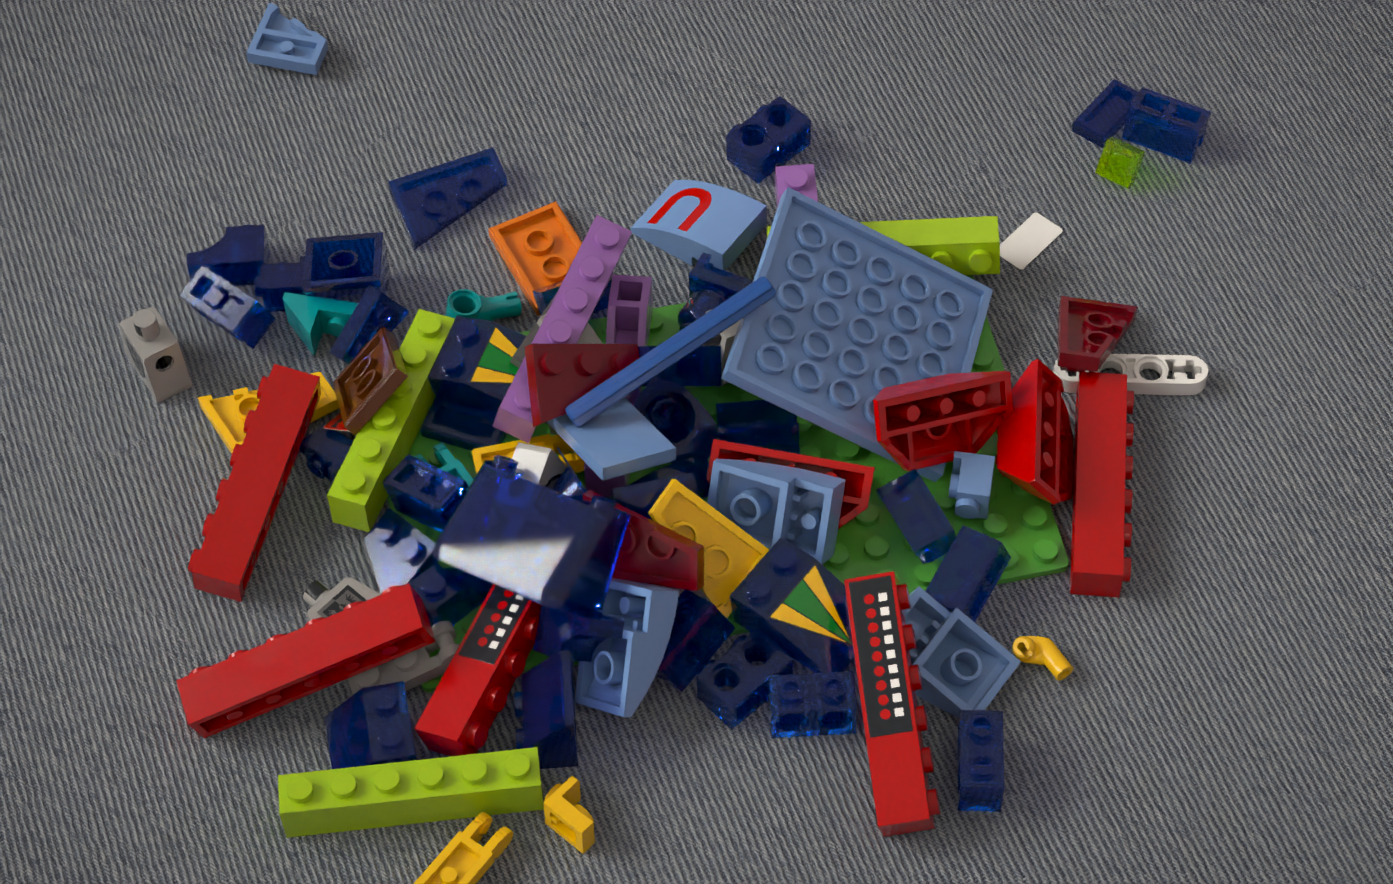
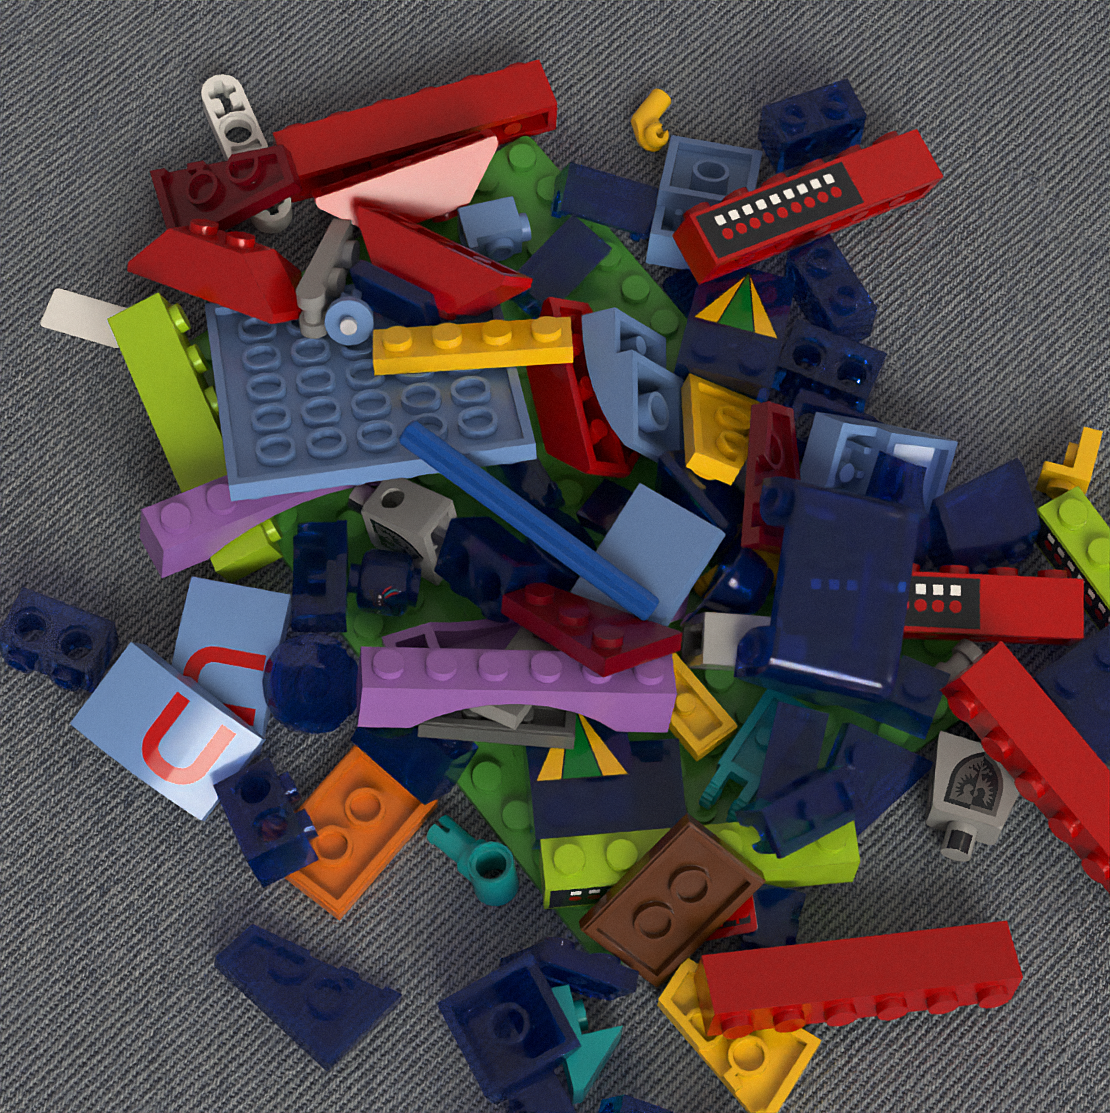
camera: 120 degrees left, 10 degrees up
(374, 454) = (803, 811): none -> clear blue hinge
(567, 196) = (266, 821): none -> clear blue brick
(661, 253) = (310, 684): none -> clear blue tile
(664, 166) = (166, 729): none -> medium blue slope
(848, 396) = (472, 345): none -> yellow plate
(914, 336) = (349, 319): none -> medium blue piece
(920, 368) = (394, 296): none -> clear blue tile
(962, 341) = (326, 276): none -> light grey plate
(1003, 308) = (223, 270): none -> red wedge

